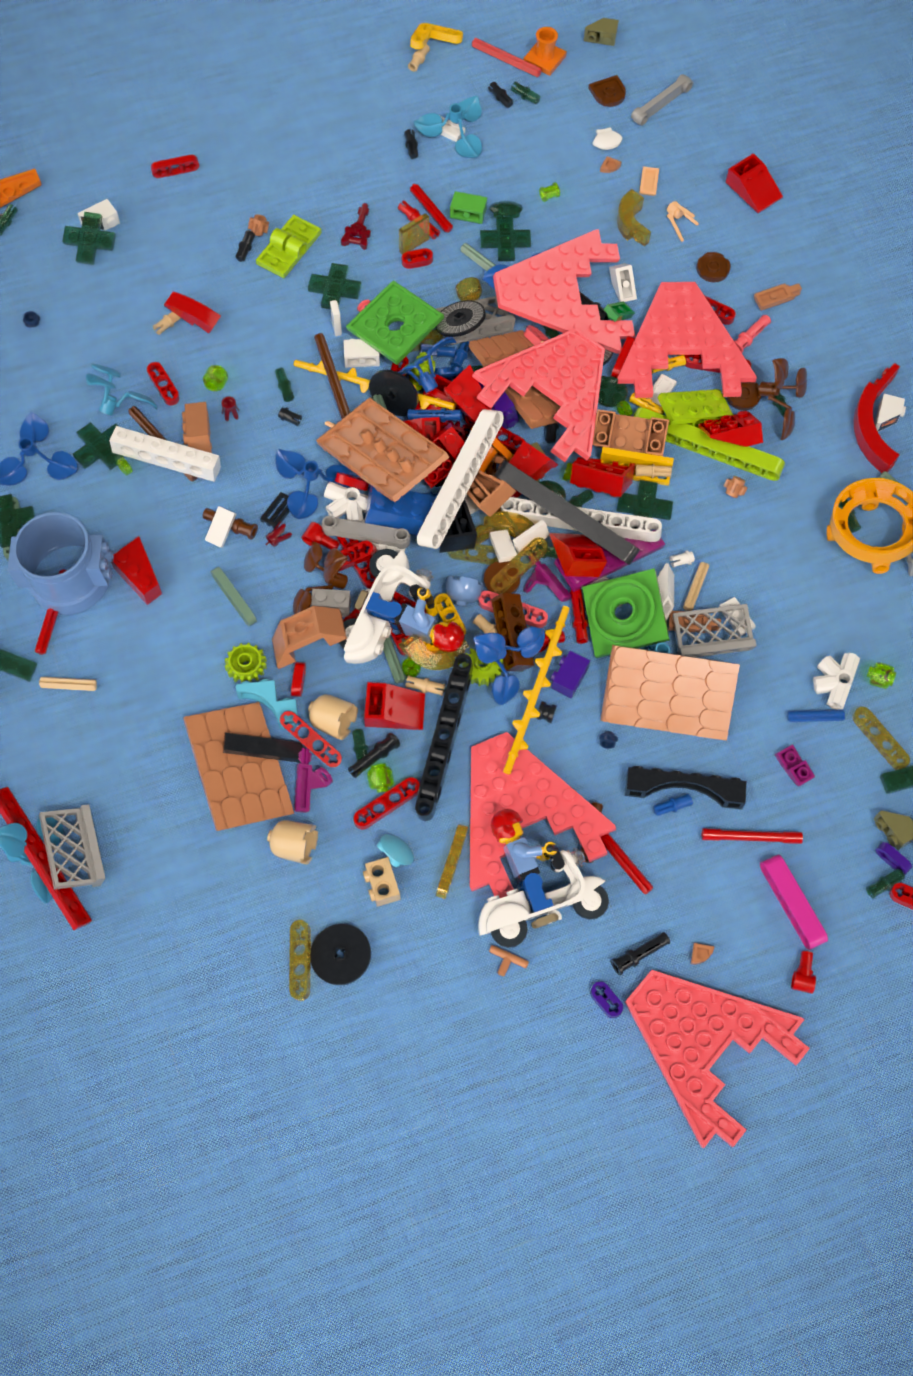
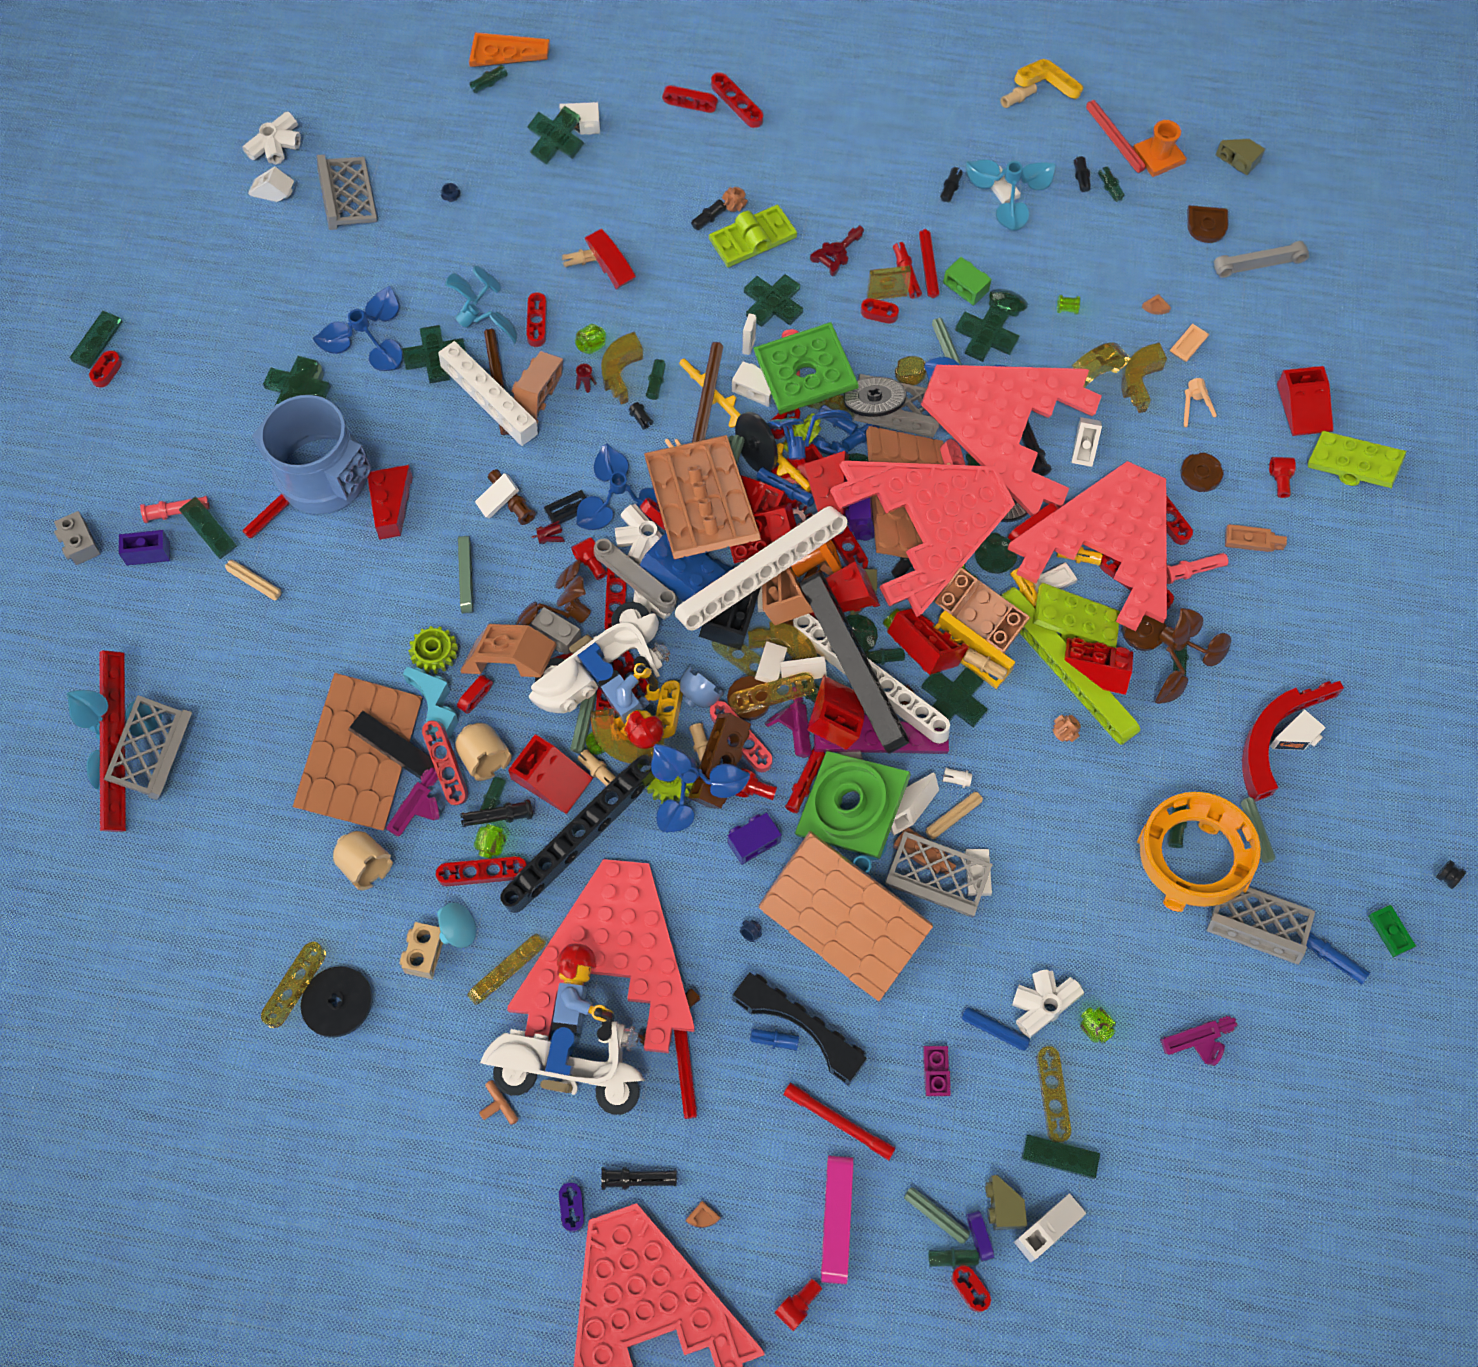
camera: 30 degrees right, 0 degrees up
(124, 466) = (443, 385): clear neon green tile -> none
(193, 145) = (739, 98): none -> red beam
(246, 376) = (617, 356): none -> clear yellow arch
(359, 557) = (613, 598): red beam -> none
(532, 695) = (697, 839): yellow plant -> none
(546, 712) = (704, 865): black wheel -> none
(600, 219) = (1101, 360): none -> clear yellow arch
(607, 139) = (1170, 275): white animal -> none
(618, 311) = (1059, 471): green plate -> none
(624, 408) = (998, 581): clear neon green tile -> none
(767, 239) = (1282, 469): none -> red pin
(812, 208) = (1356, 460): none -> lime plate
(856, 861) = (937, 1215): none -> sand green axle

